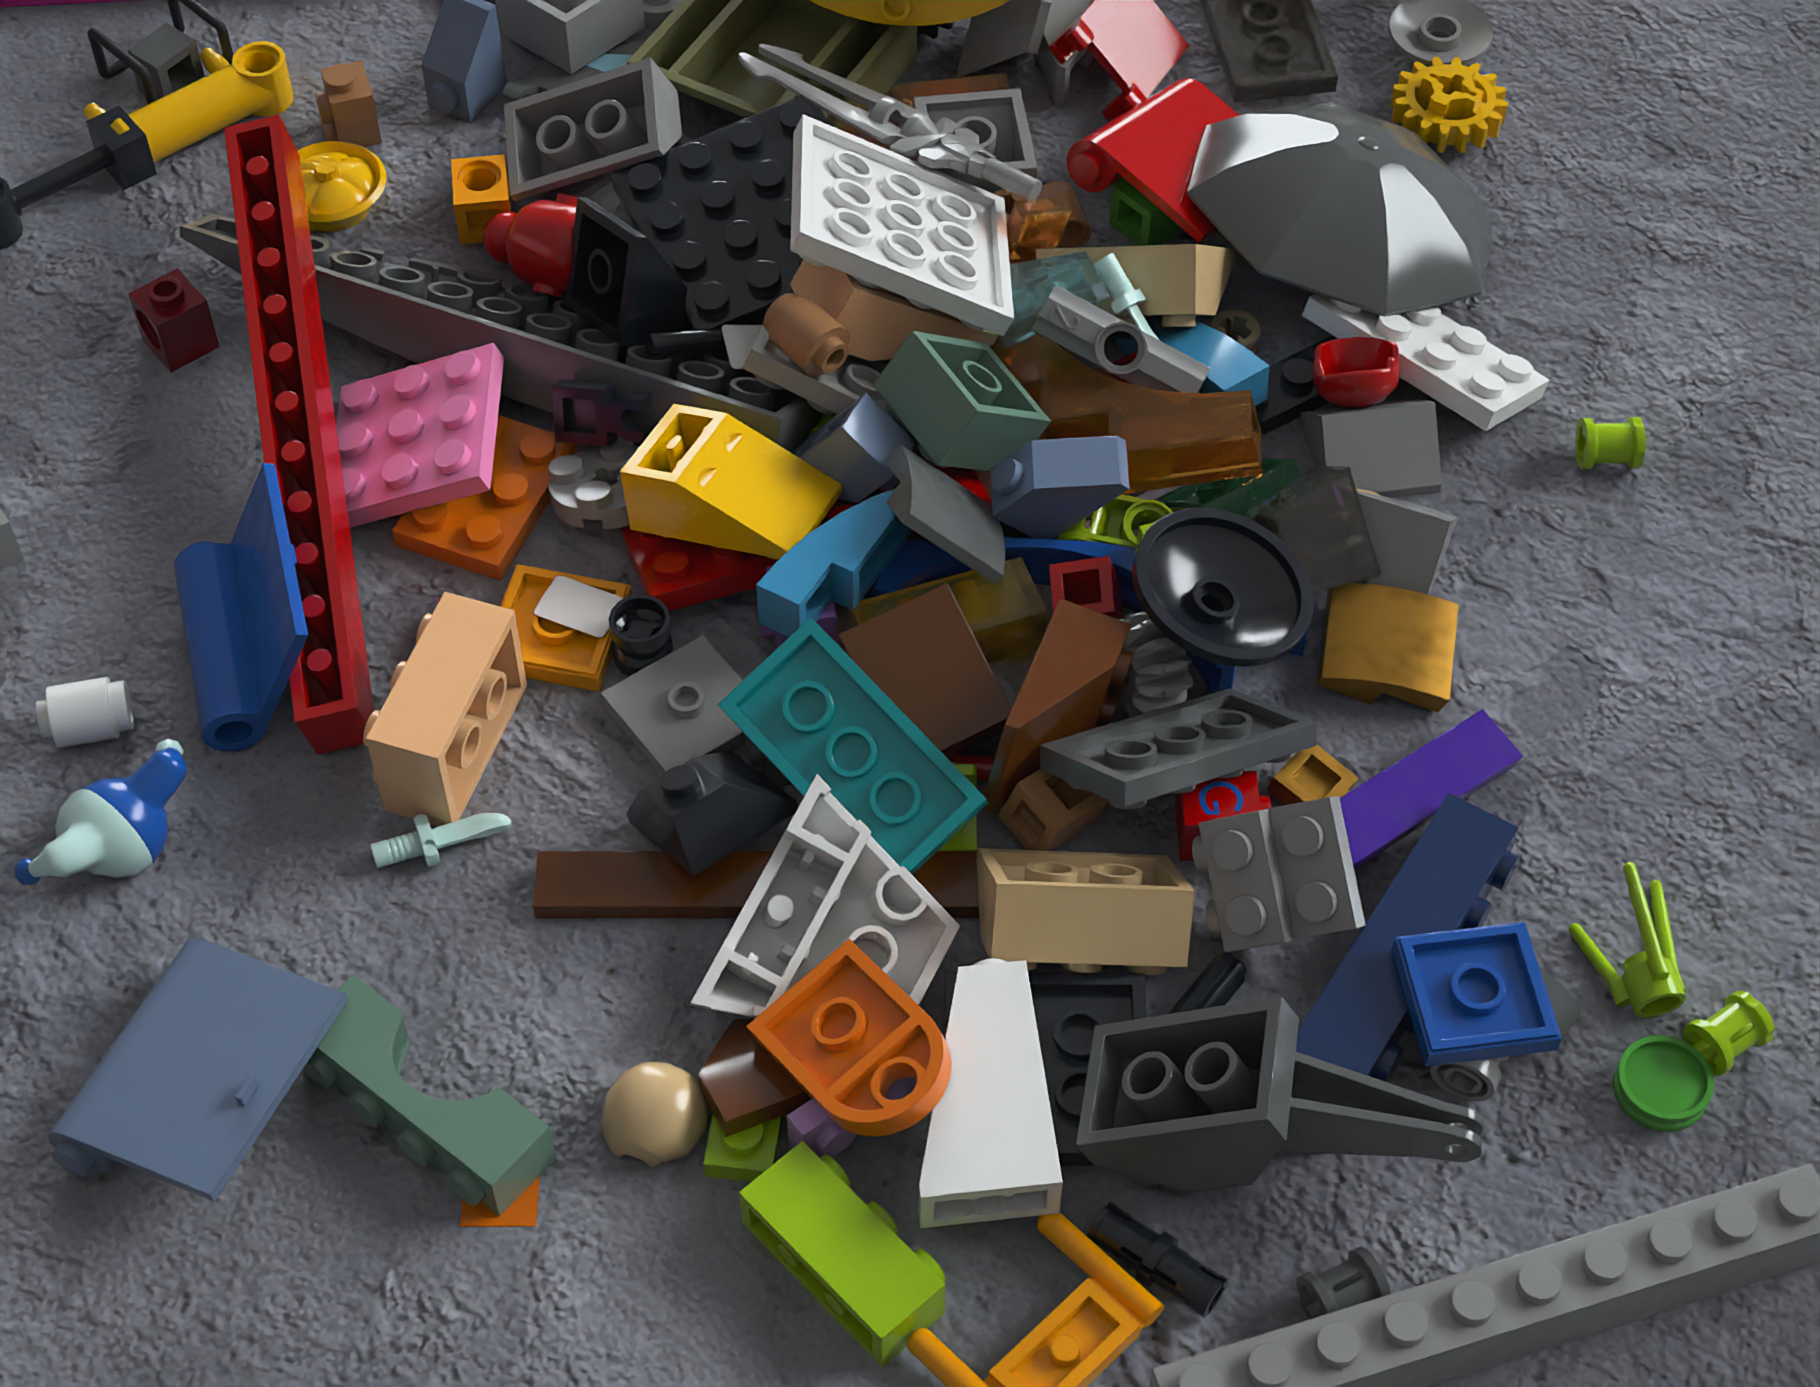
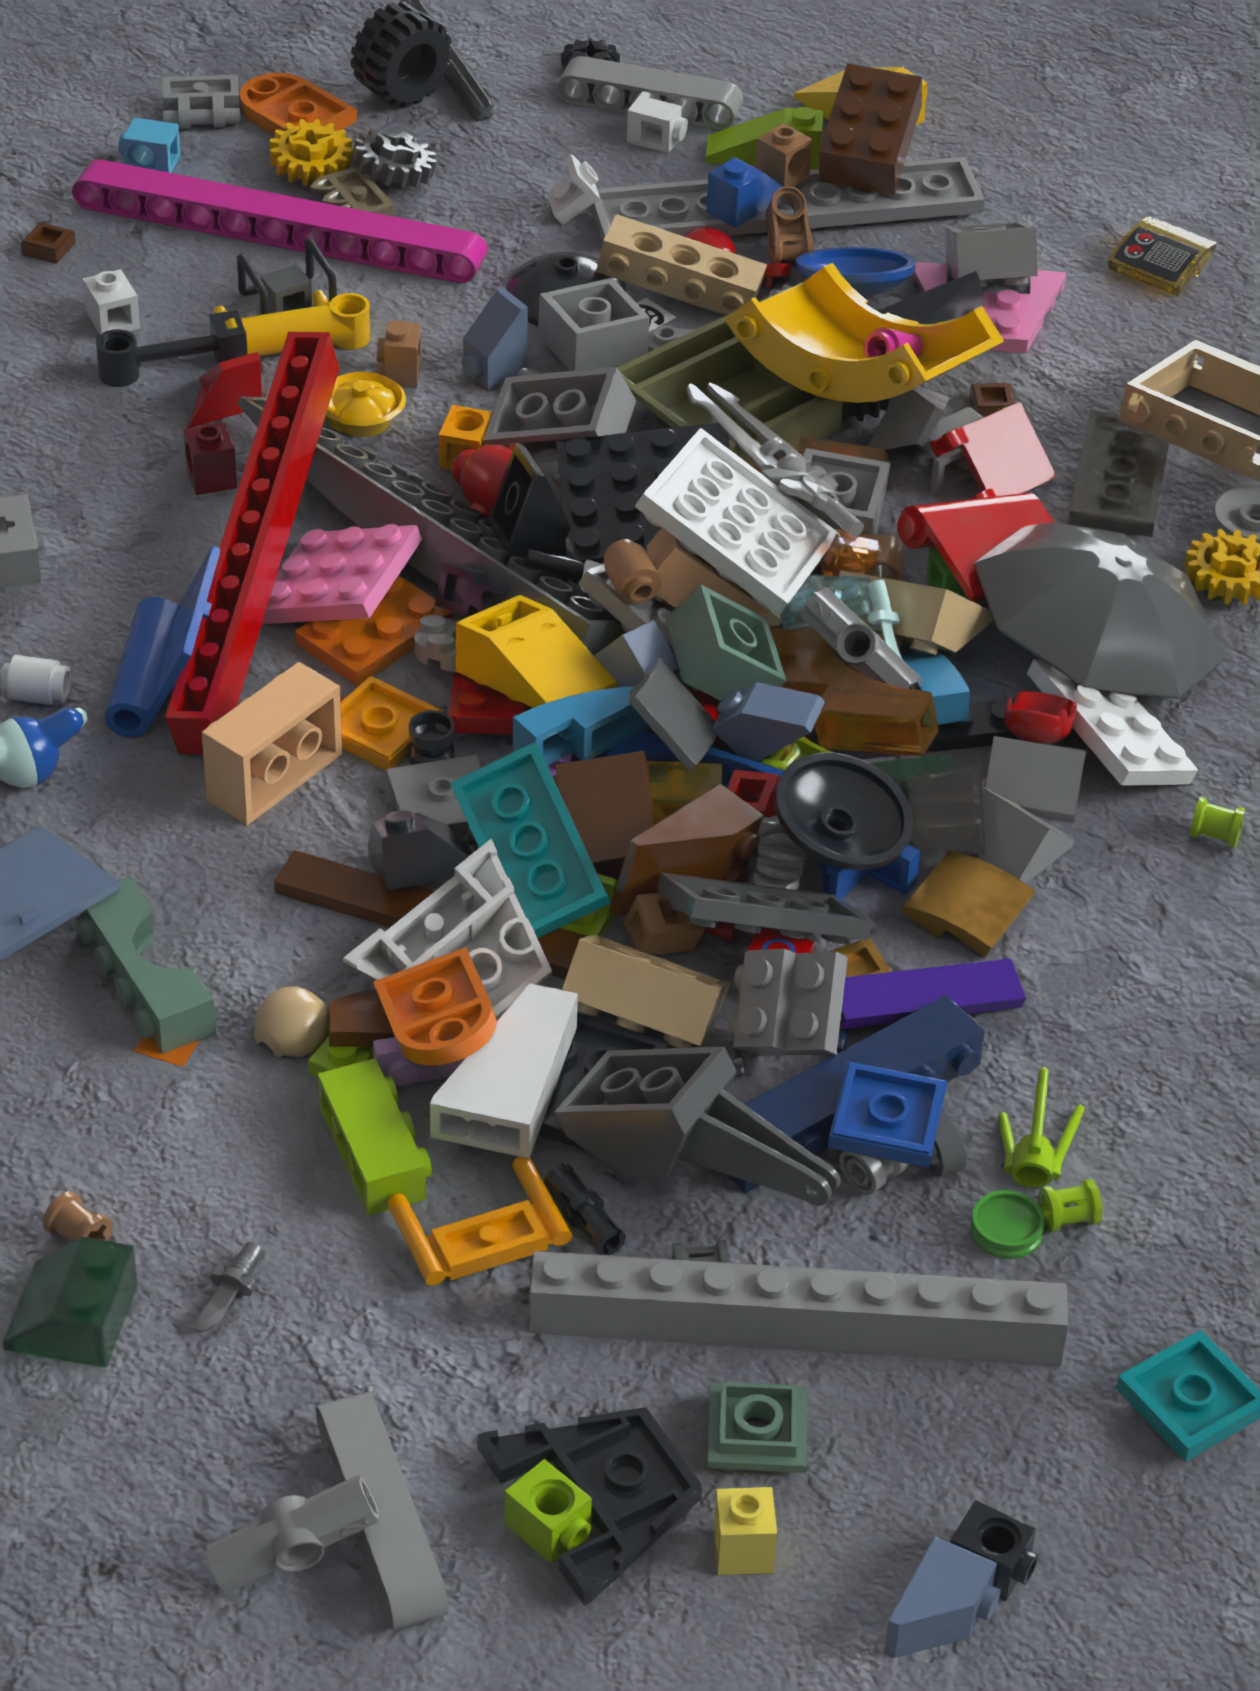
camera: 20 degrees right, 10 degrees down
(150, 217) = (224, 386): none -> red slope
(427, 840) = (224, 823): light aqua piece -> none
(577, 606) = (395, 710): white sticker -> none
(1241, 325) = (977, 676): dark tan bush -> none

